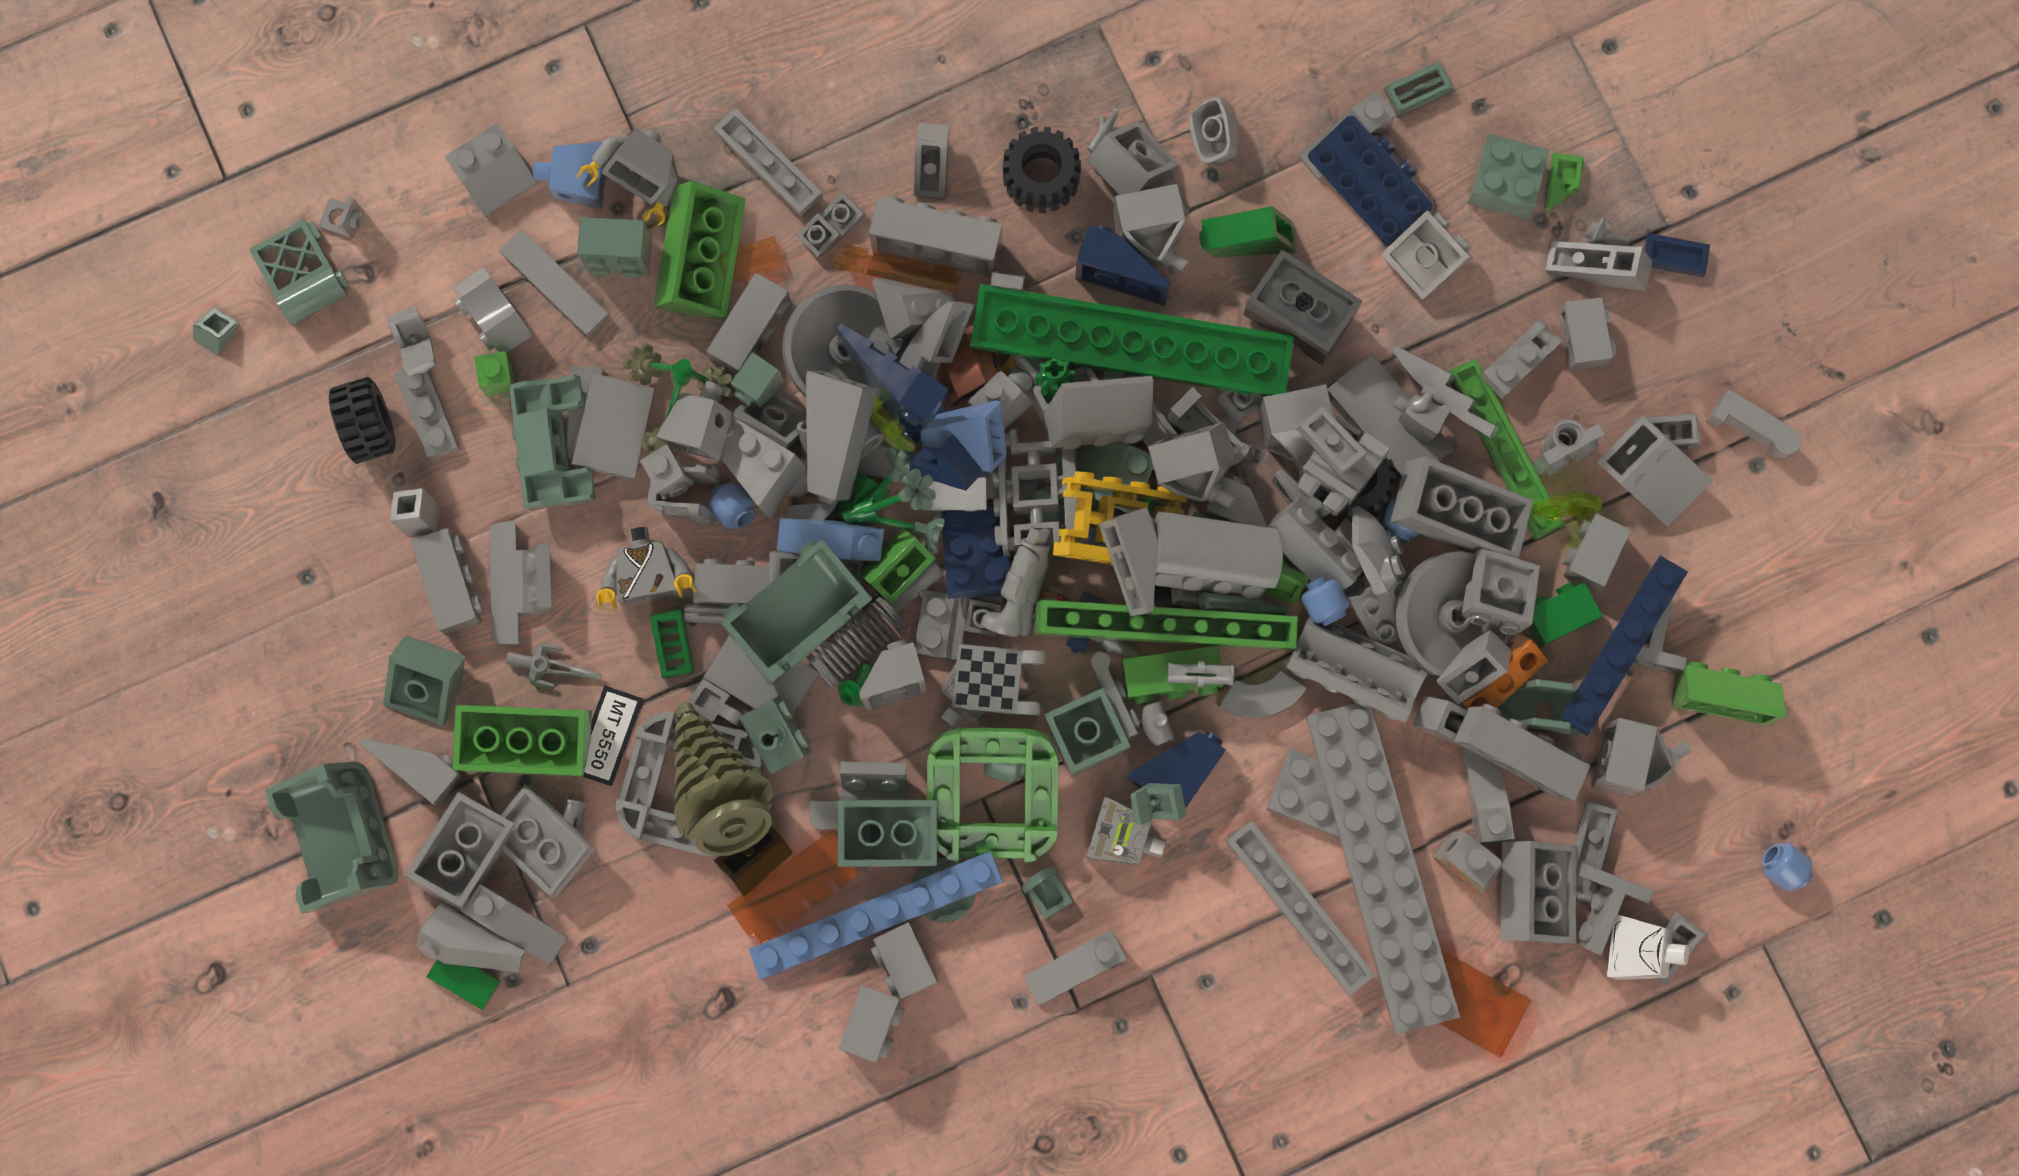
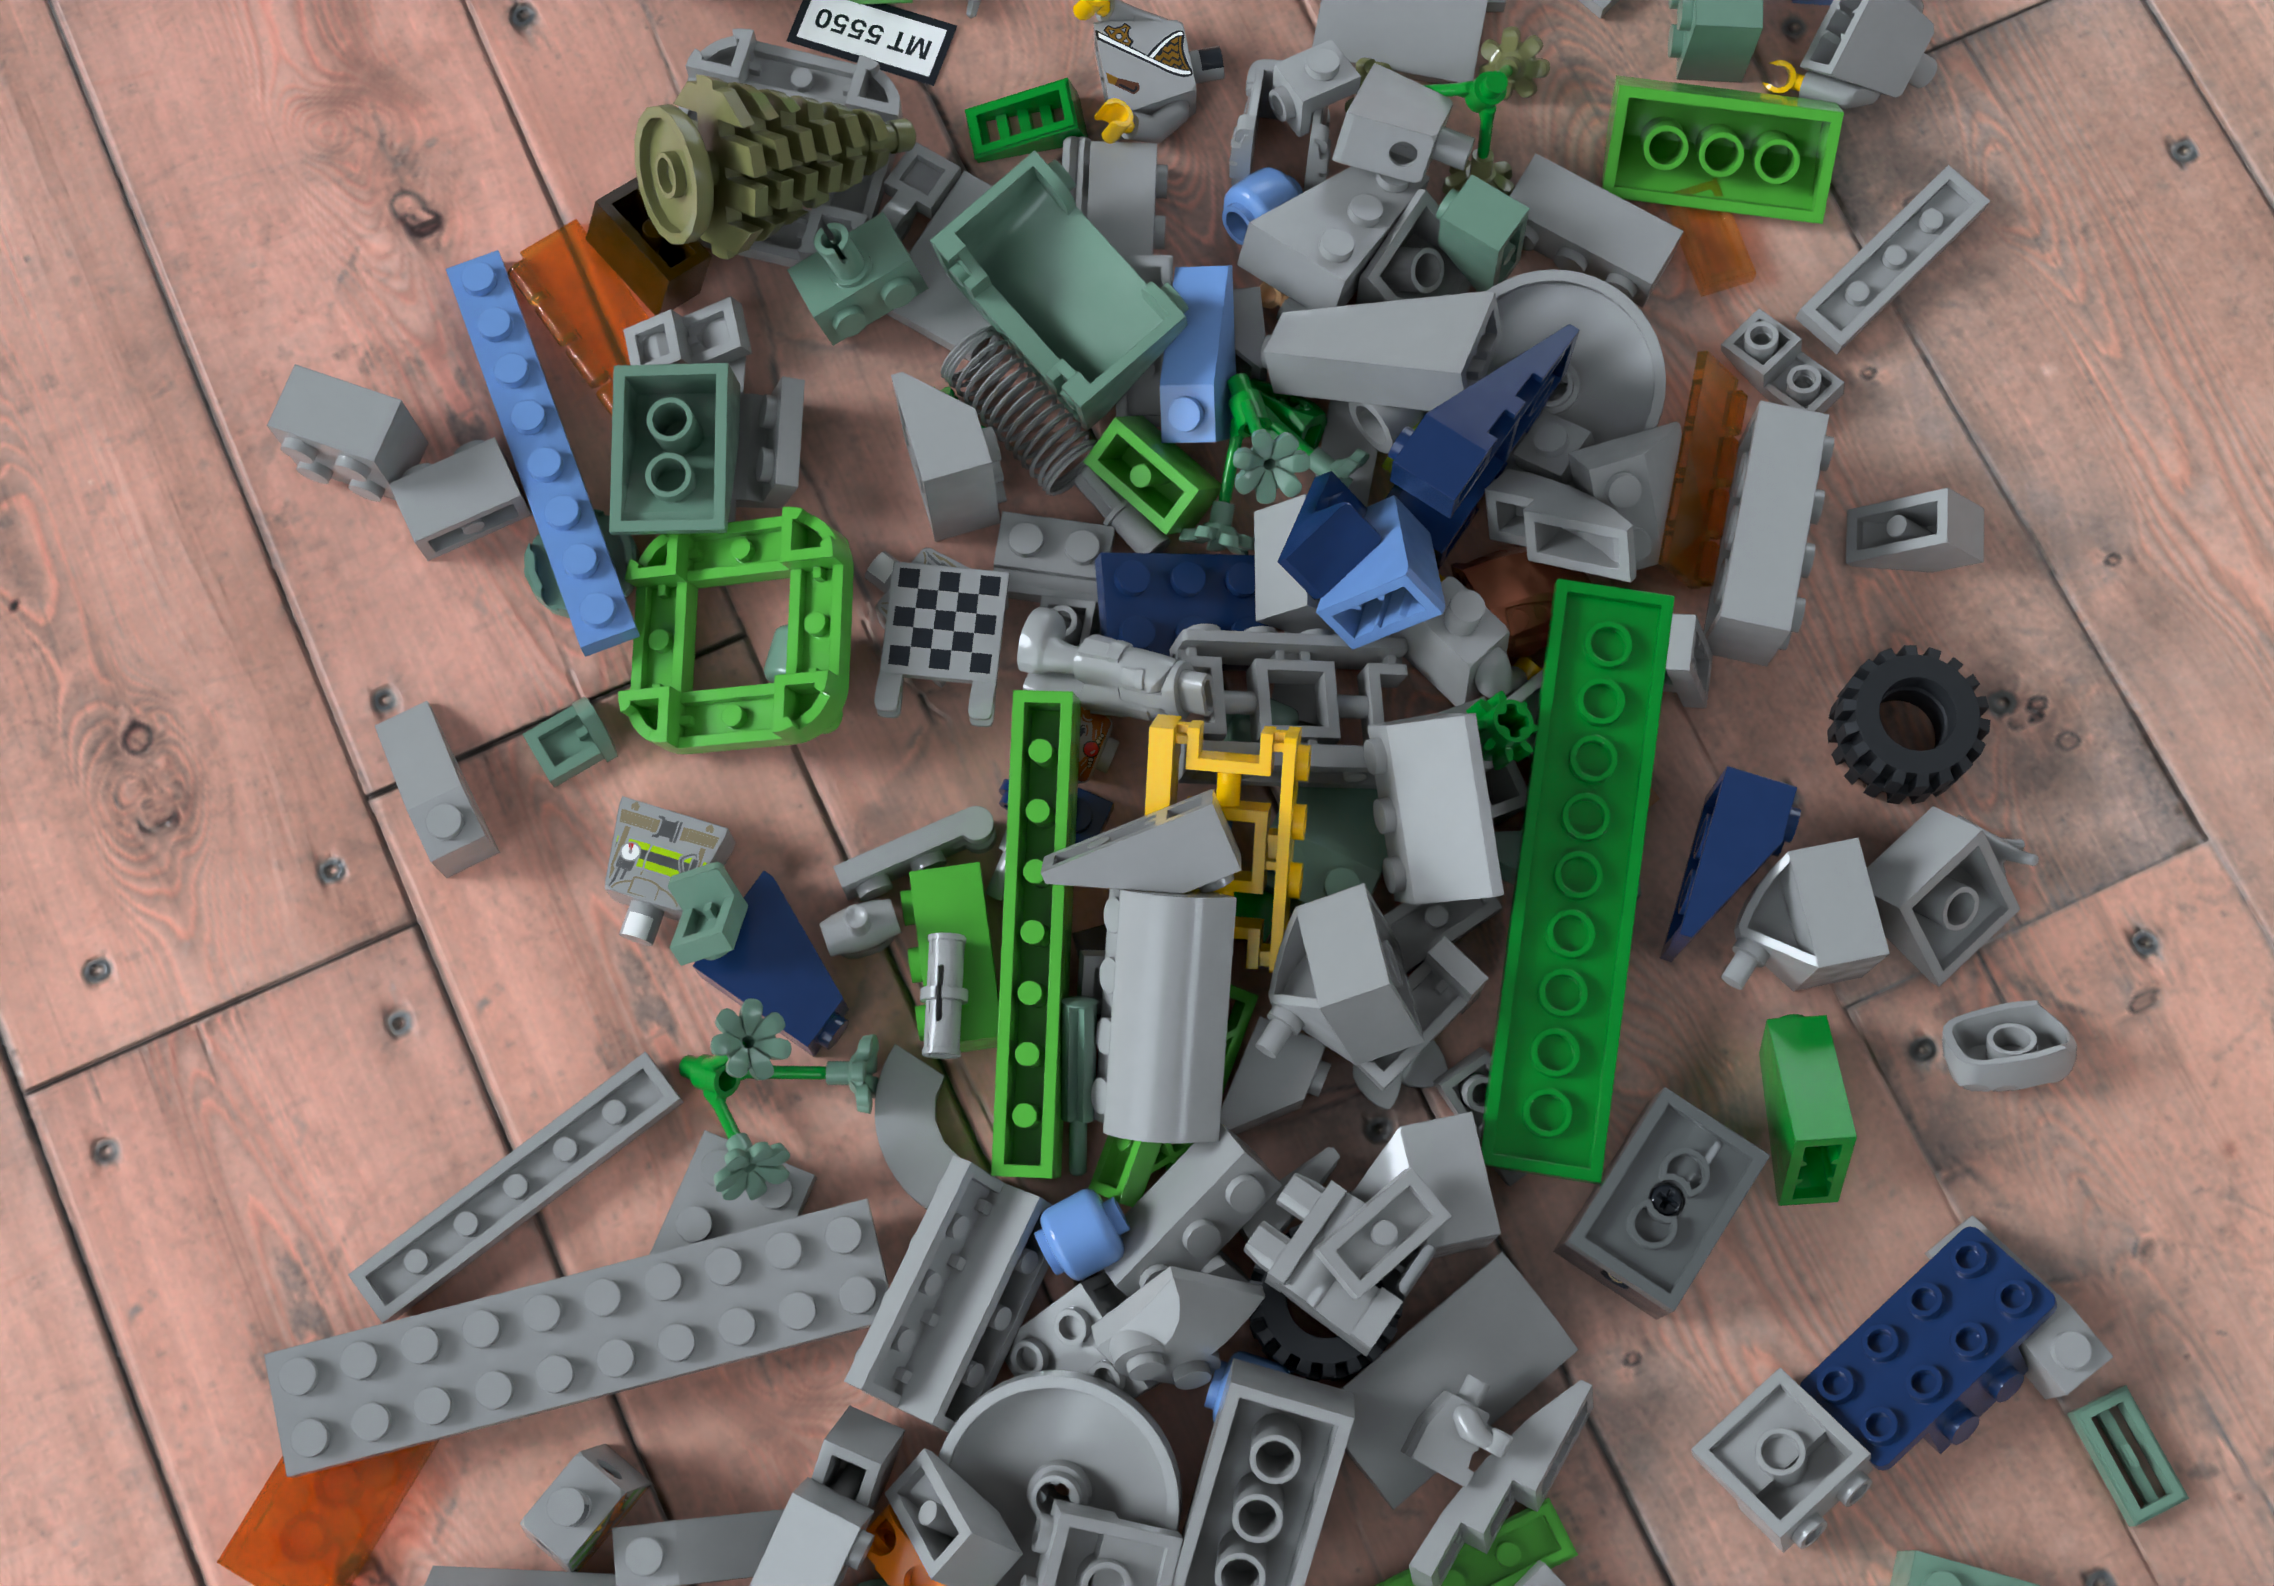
camera: 90 degrees right, 5 degrees down
(809, 834) = (704, 336): none -> light grey slope
(1086, 732) = (845, 796): sand green brick -> none
(1238, 769) = (745, 1054): none -> sand green plant

